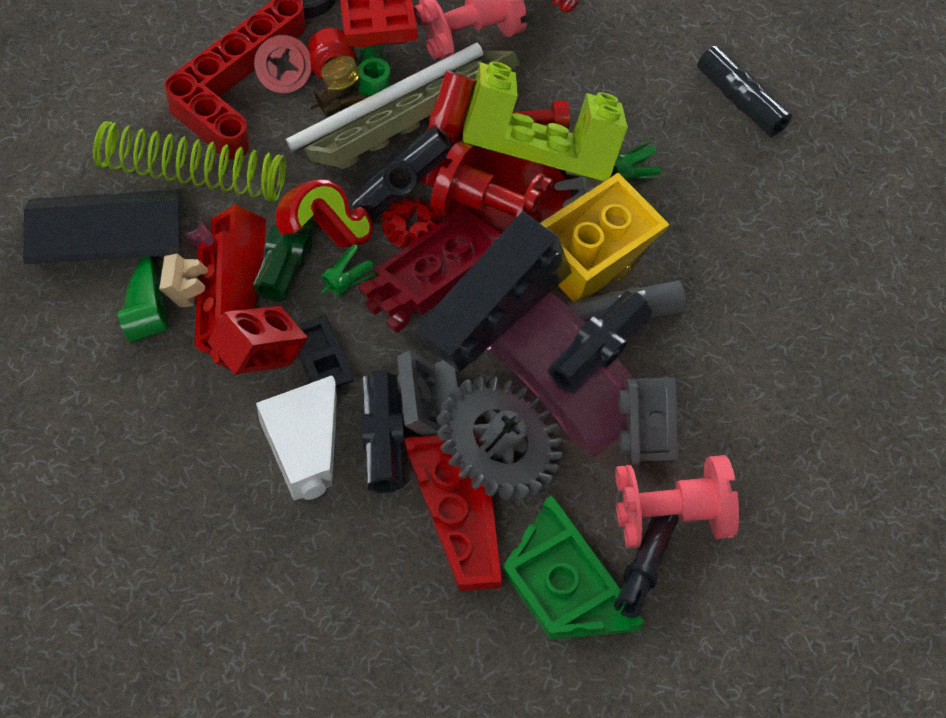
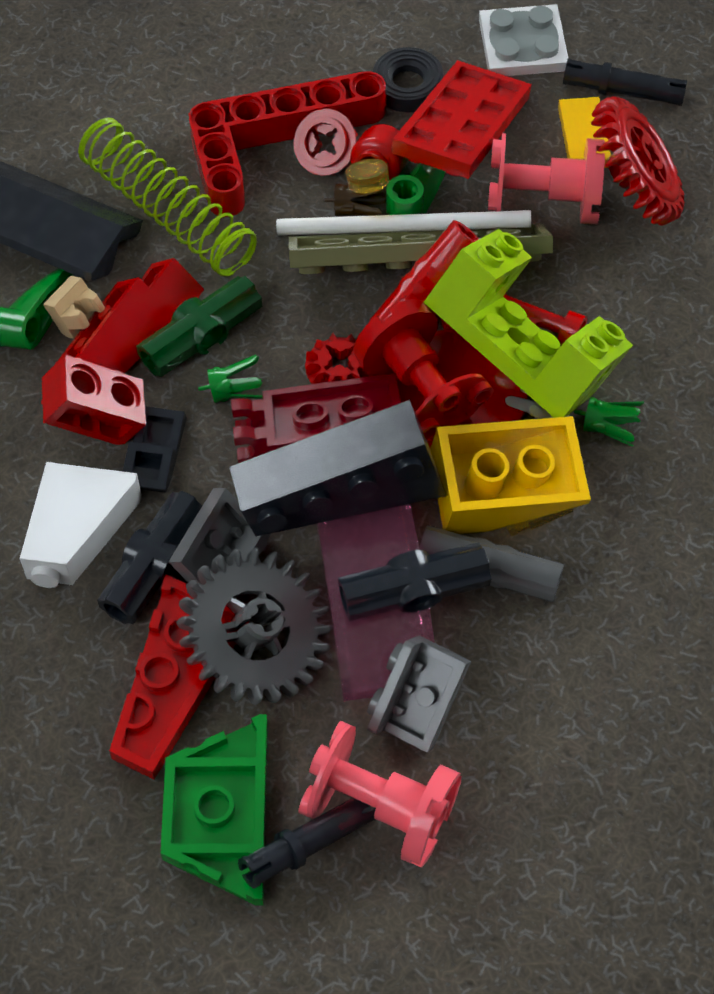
camera: 35 degrees right, 0 degrees up
(199, 236) = (125, 271): clear pink hand -> none
(329, 208) = (255, 306): red animal -> none
(418, 158) = (331, 310): black piece -> none

